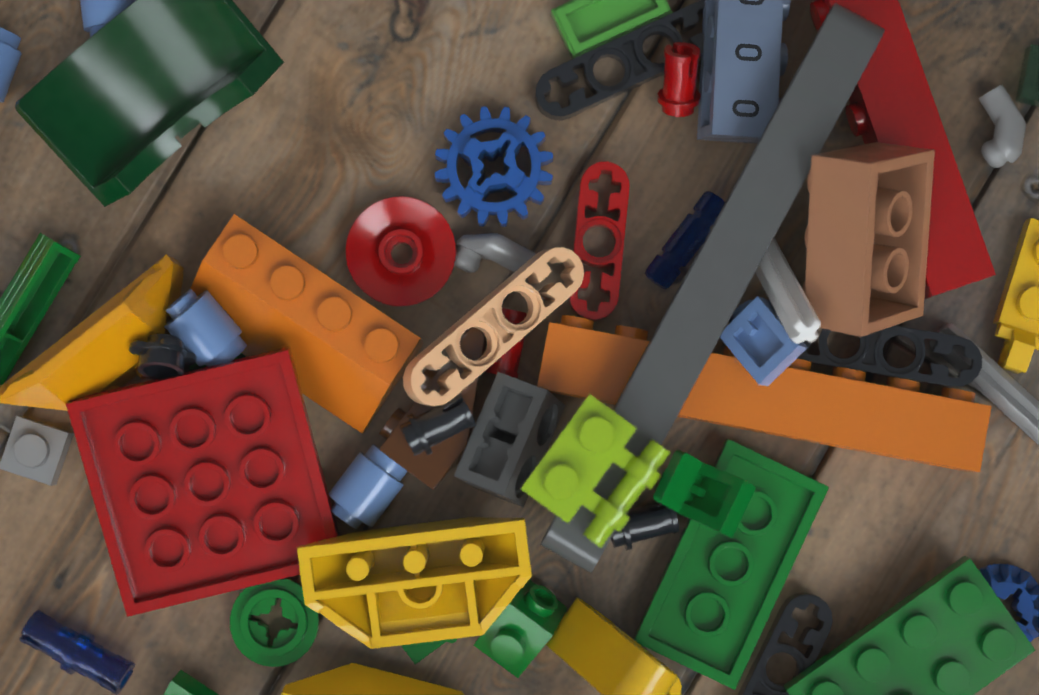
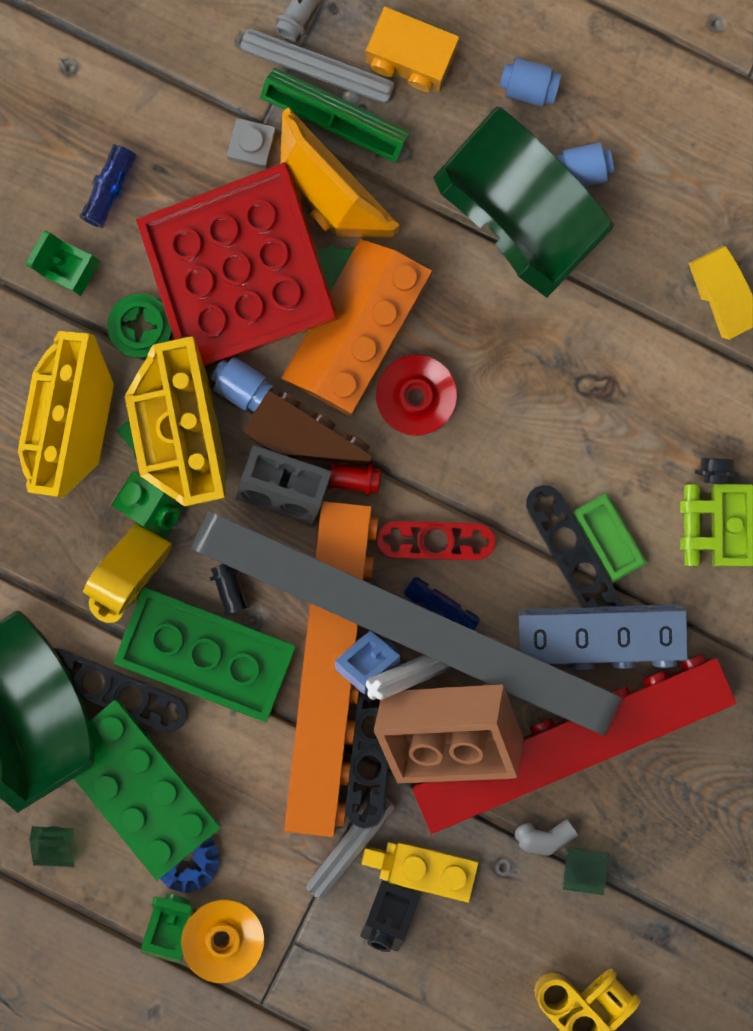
camera: 85 degrees right, 0 degrees up
(161, 356) = (323, 228): black plate -> none
(205, 328) = (346, 256): medium blue brick -> none
(437, 425) = (288, 429): black pin -> none
(474, 152) = (467, 448): blue gear -> none
(489, 319) = (368, 462): light nougat beam -> none
(492, 247) = (424, 465): light grey arm -> none
(581, 458) = (268, 531): lime plate -> none
(680, 78) = (551, 592): red pin -> none
(704, 493) = (253, 628): green bracket -> none

